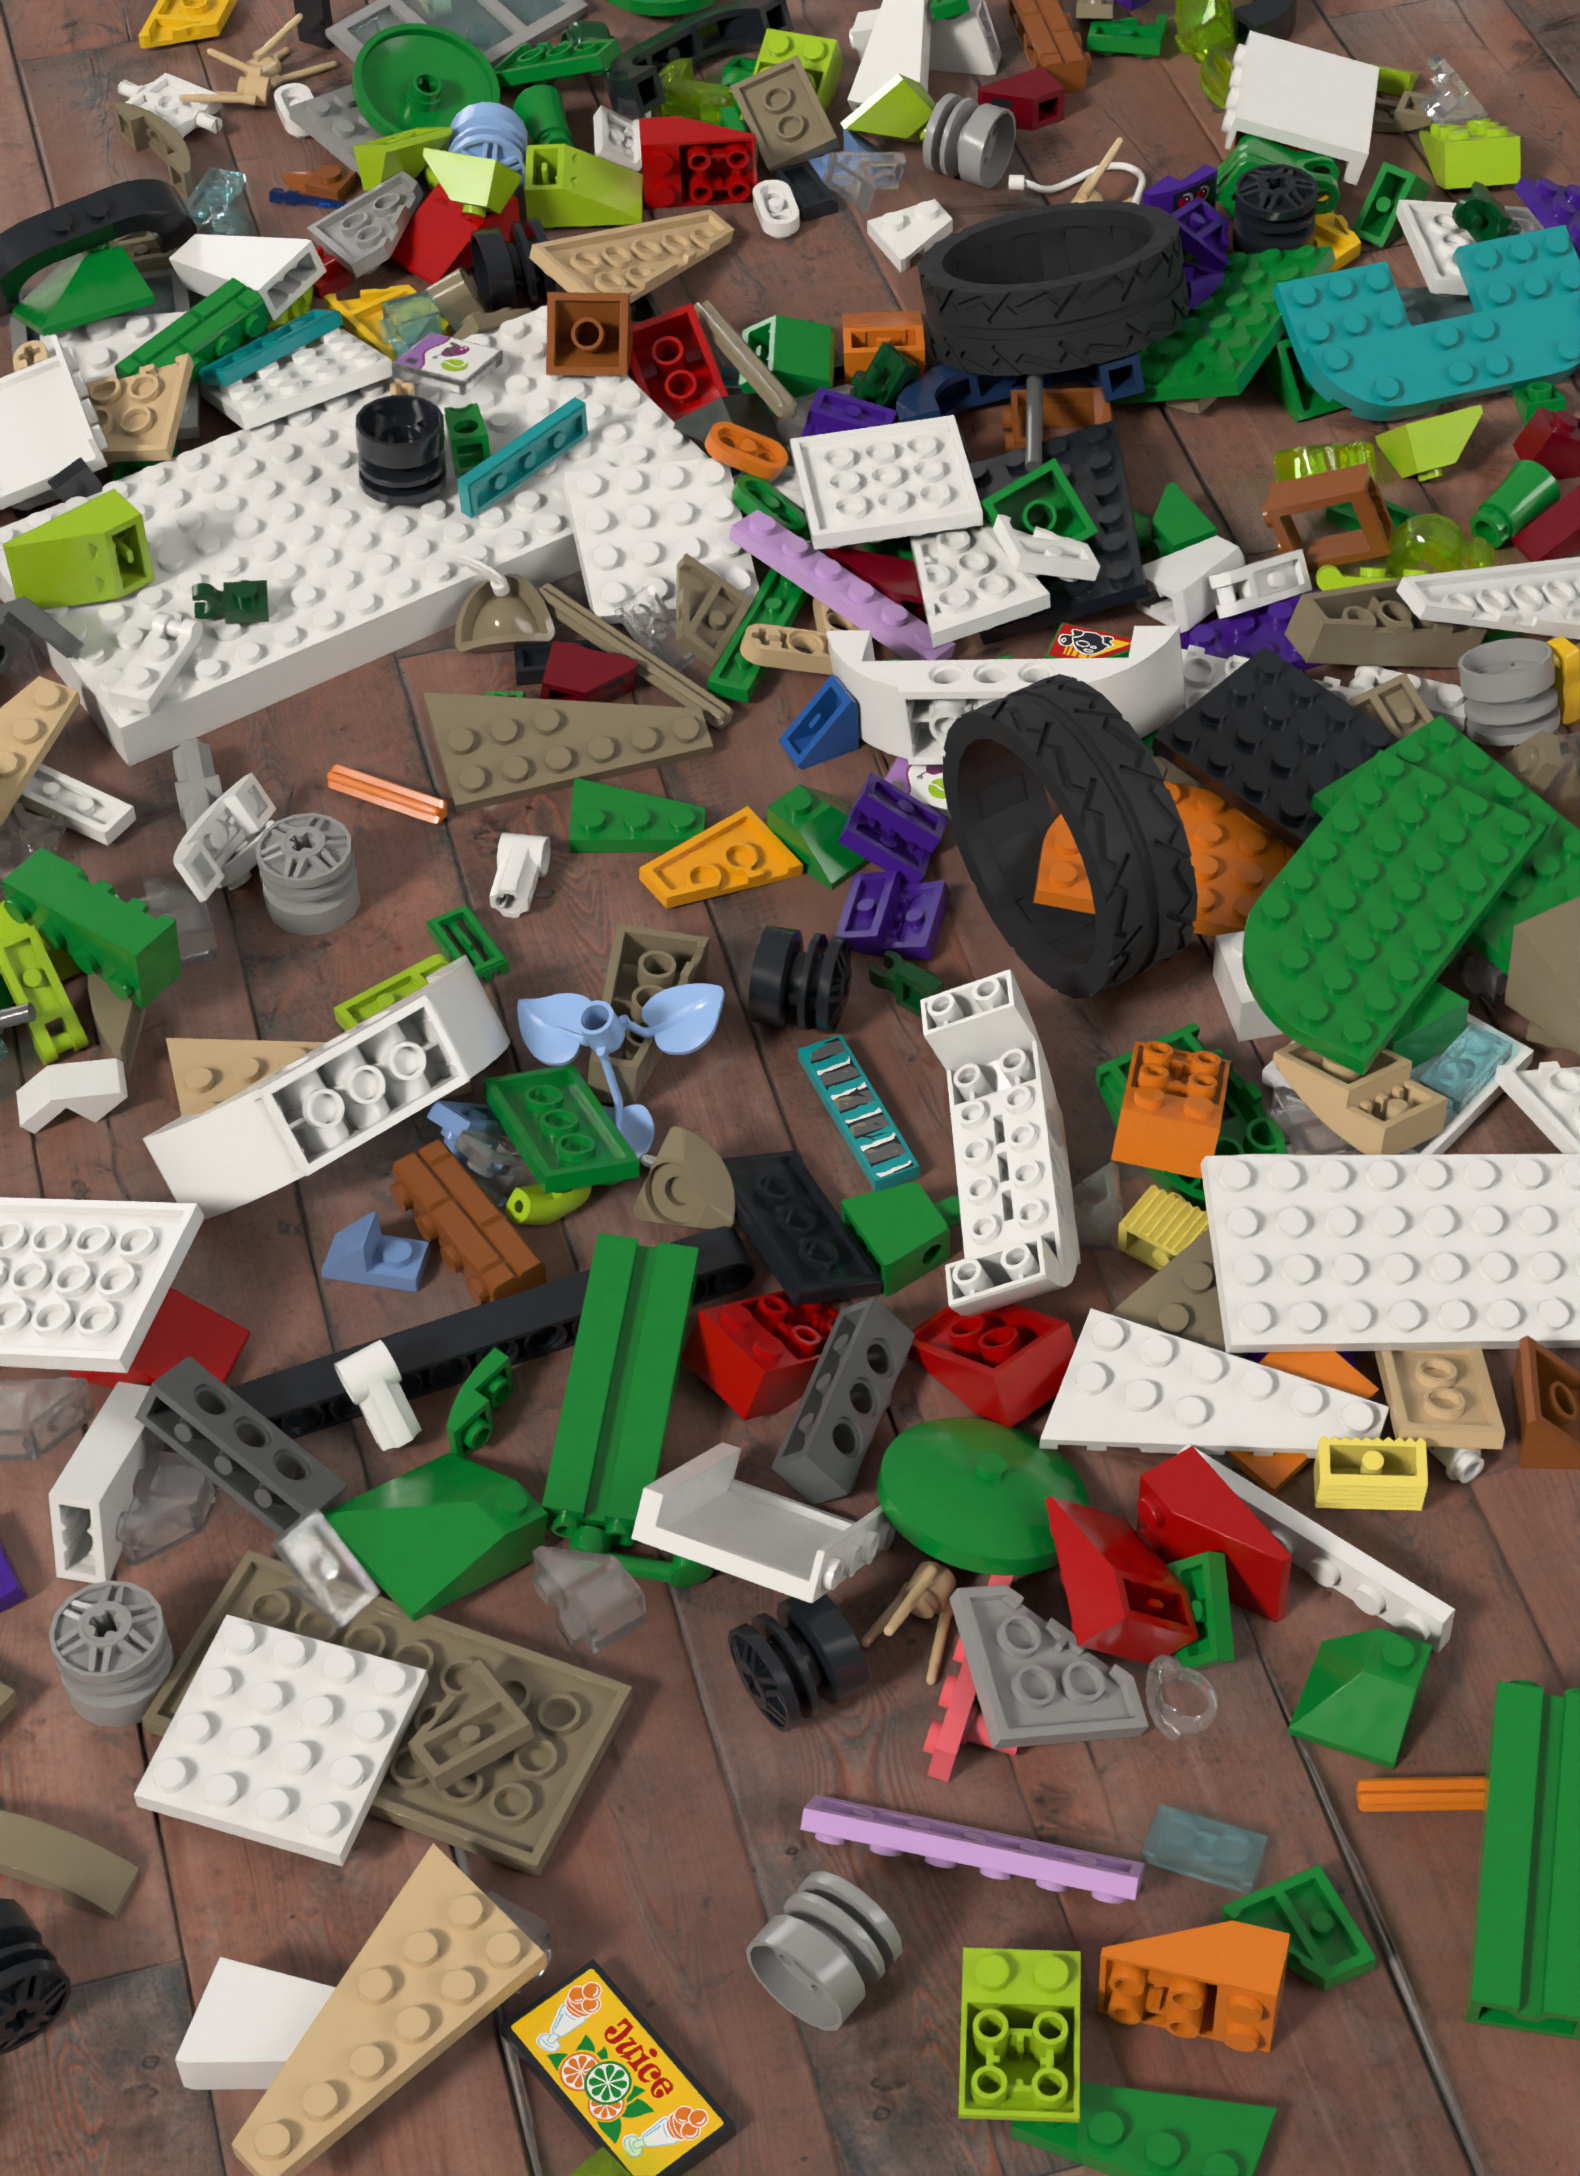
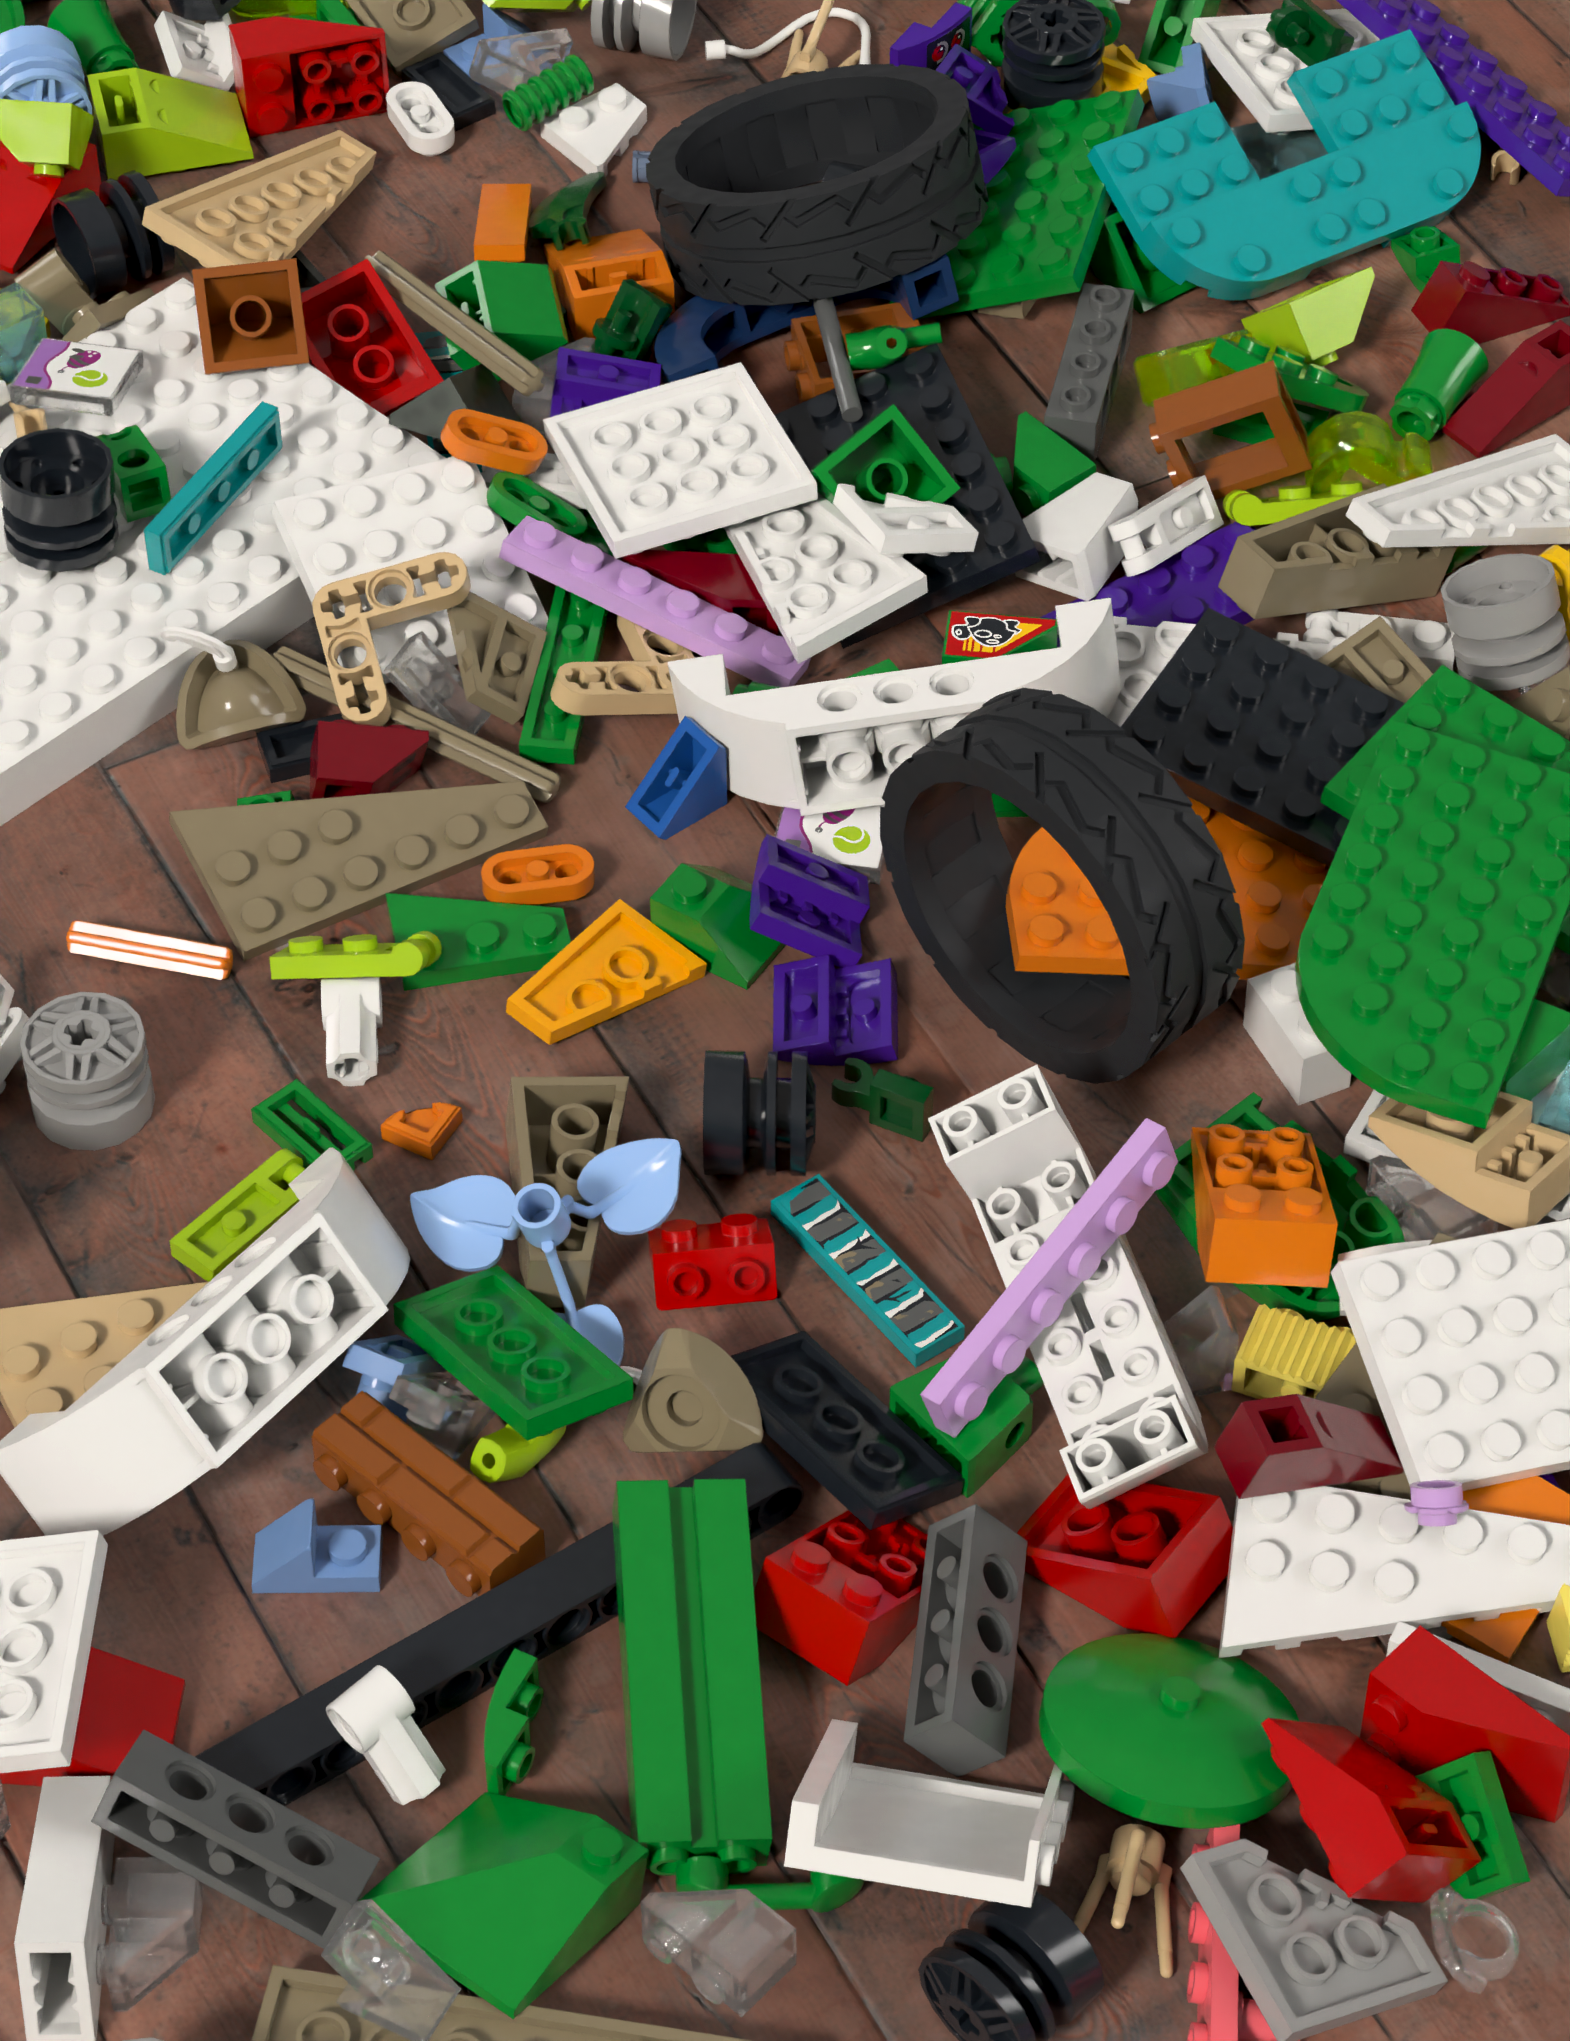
camera: 15 degrees left, 0 degrees up
(533, 820) = (355, 958): none -> lime plate
(552, 957) = (424, 1129): none -> orange tile
(603, 573) = (356, 625): none -> tan beam
(694, 780) = (538, 875): none -> orange plate
(738, 1088) = (712, 1262): none -> red bracket
(813, 292) = (503, 222): none -> orange tile
(864, 291) = (566, 211): none -> dark green piece
(875, 199) = (548, 92): none -> green piece
(979, 1134) = (1050, 1278): none -> lavender plate
(1065, 420) = (870, 349): none -> green piece
(1140, 1292) = (1302, 1445): none -> dark red slope
(1238, 458) = (1091, 367): none -> dark grey brick
(1238, 1355) = (1436, 1504): none -> lavender plate
(1382, 248) = (1184, 88): none -> medium blue slope
(1396, 481) = (1302, 380): none -> green plate

